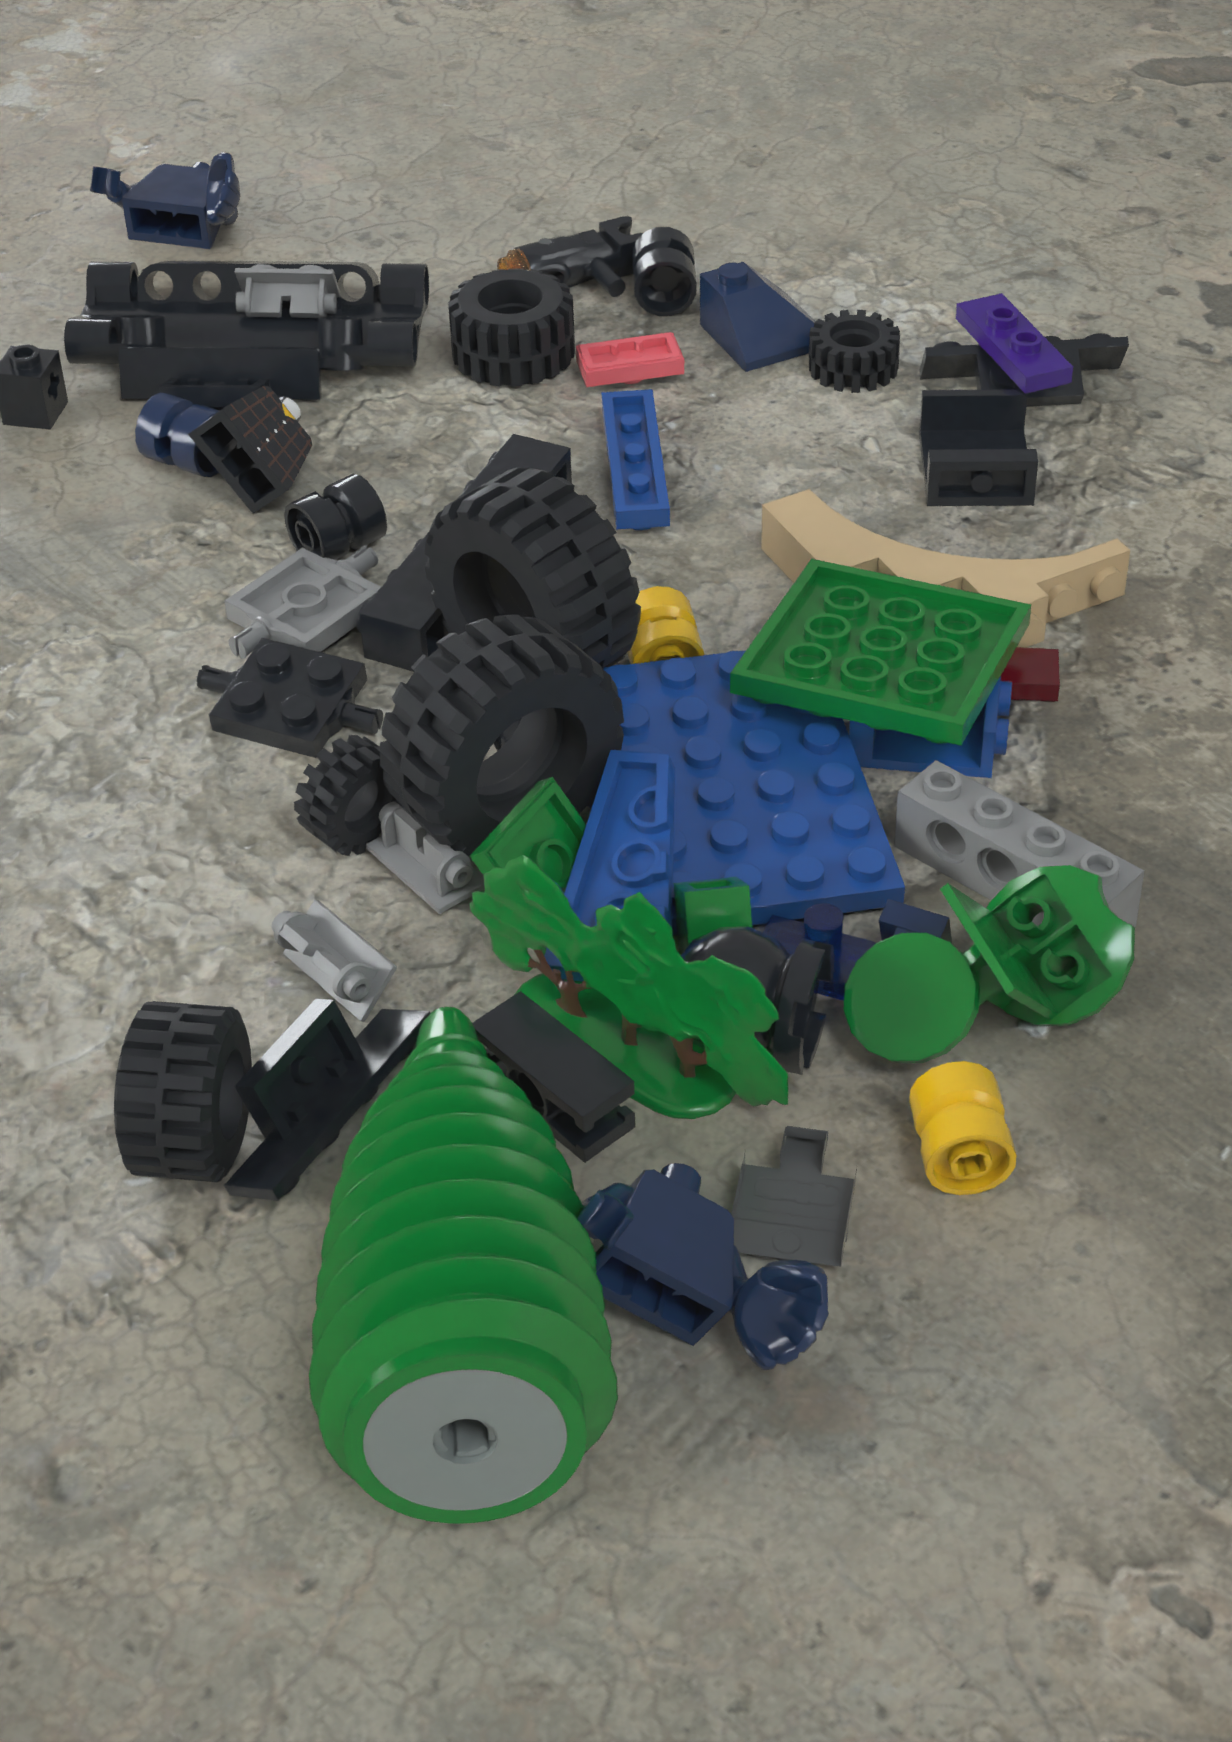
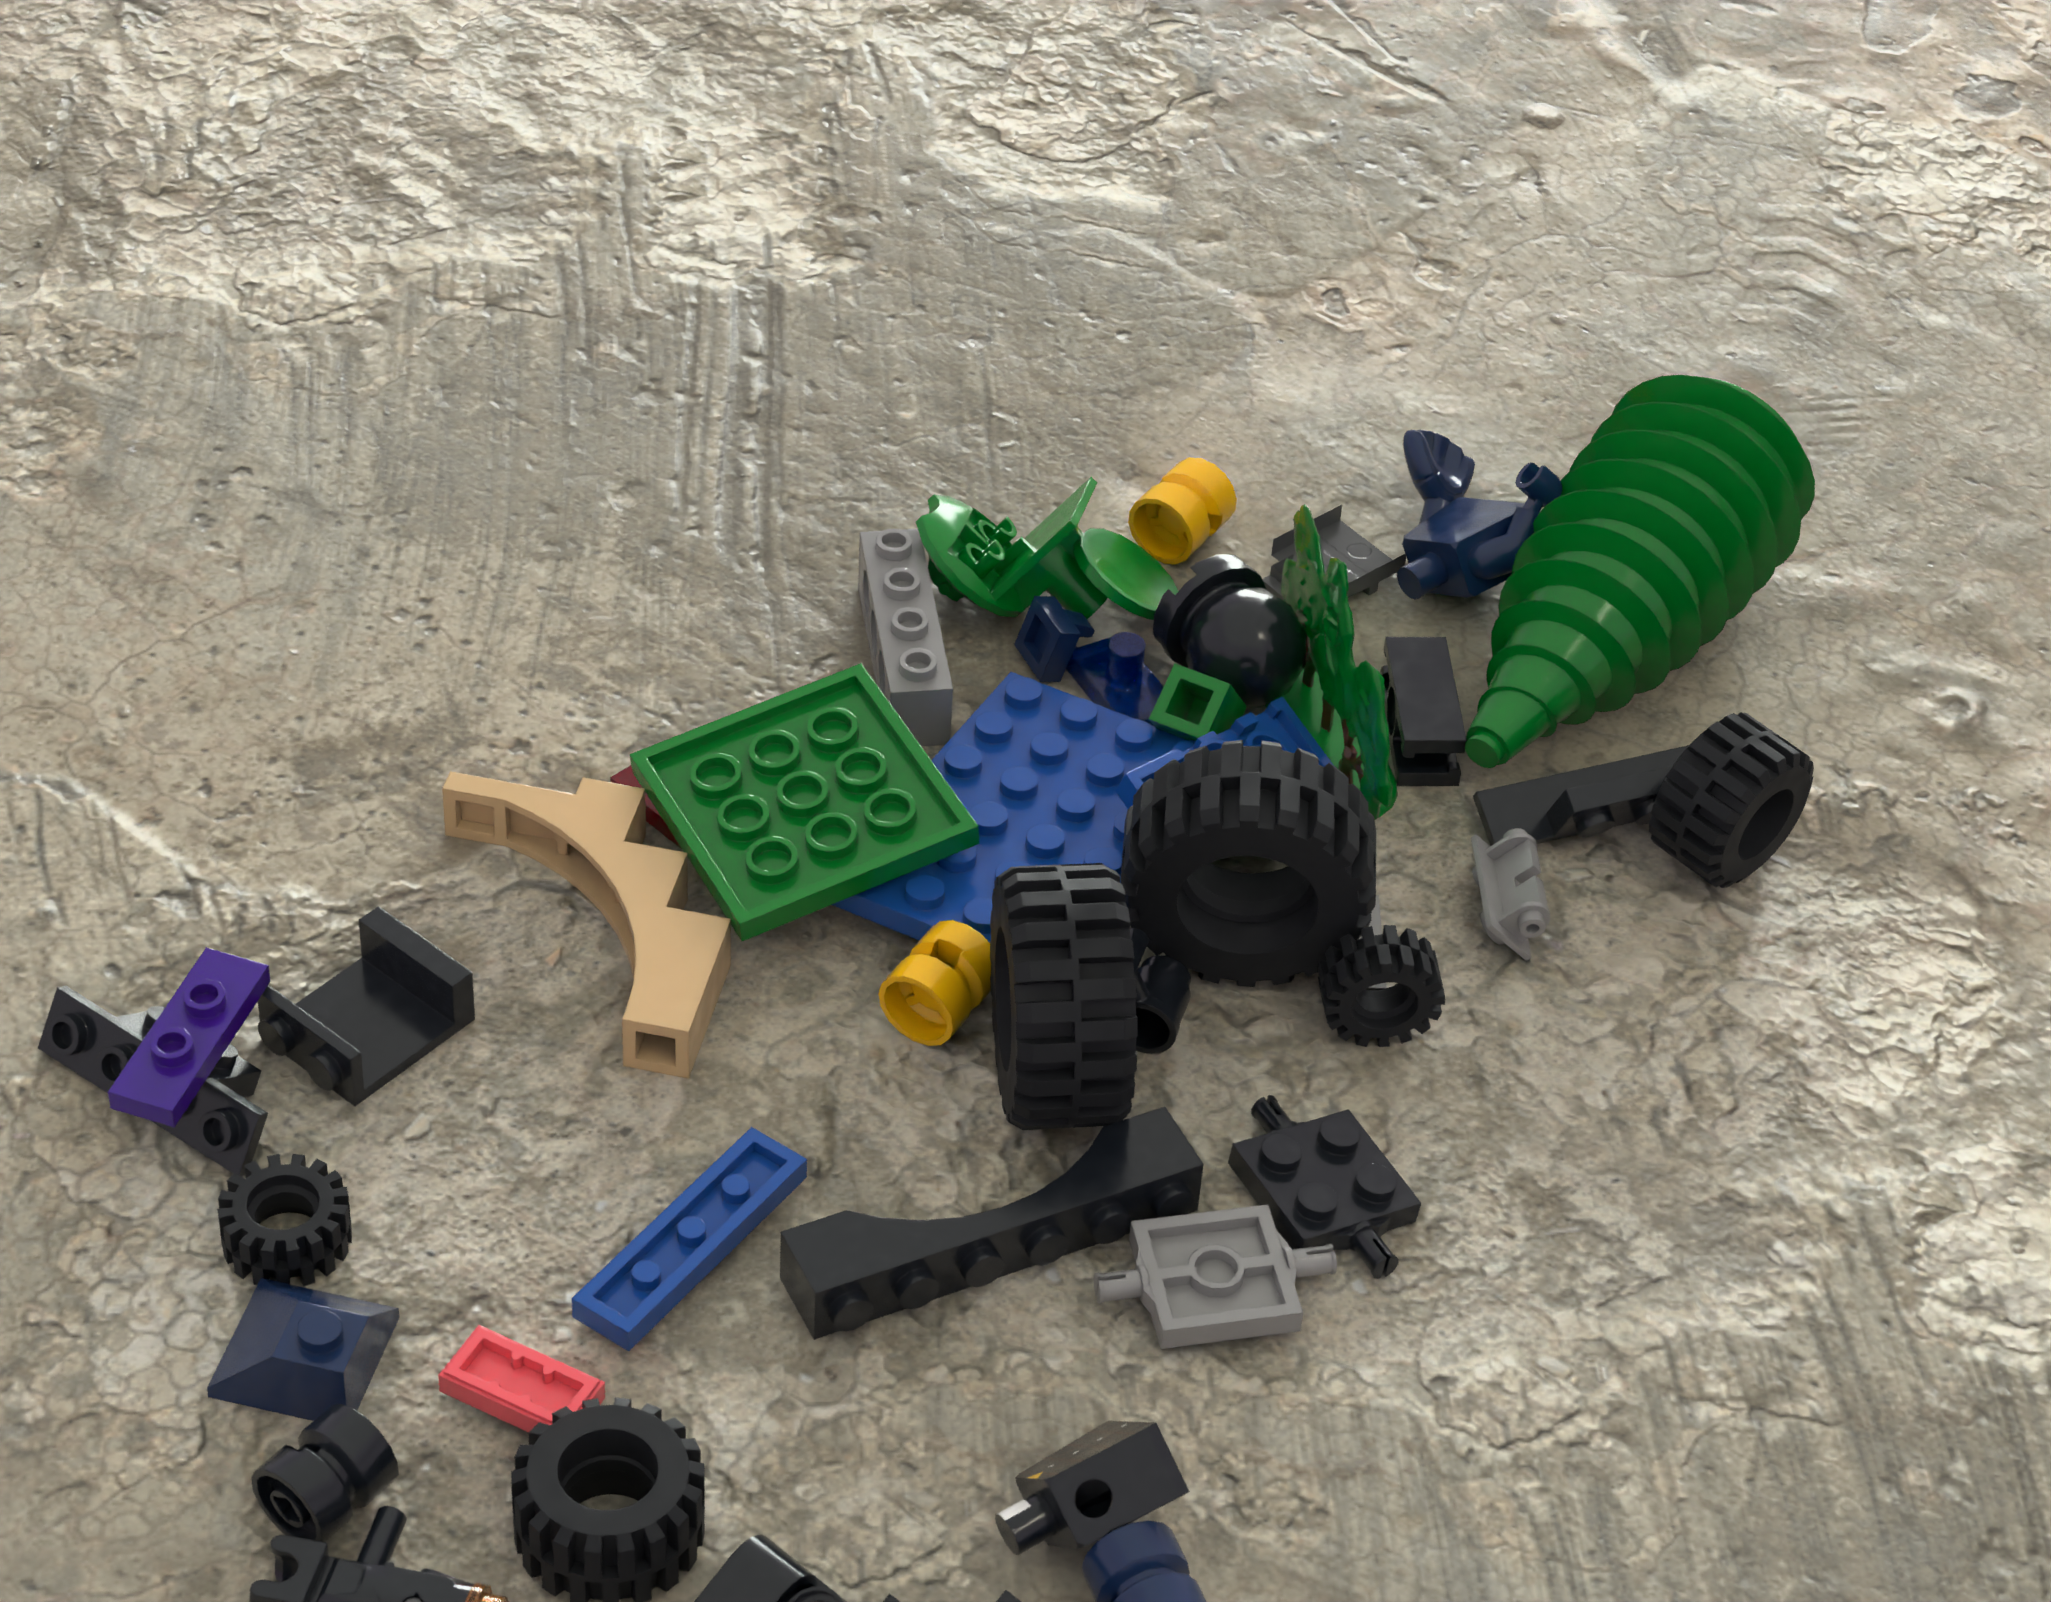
camera: 145 degrees left, 0 degrees up
(339, 520) = (1098, 1339): black wheel -> none

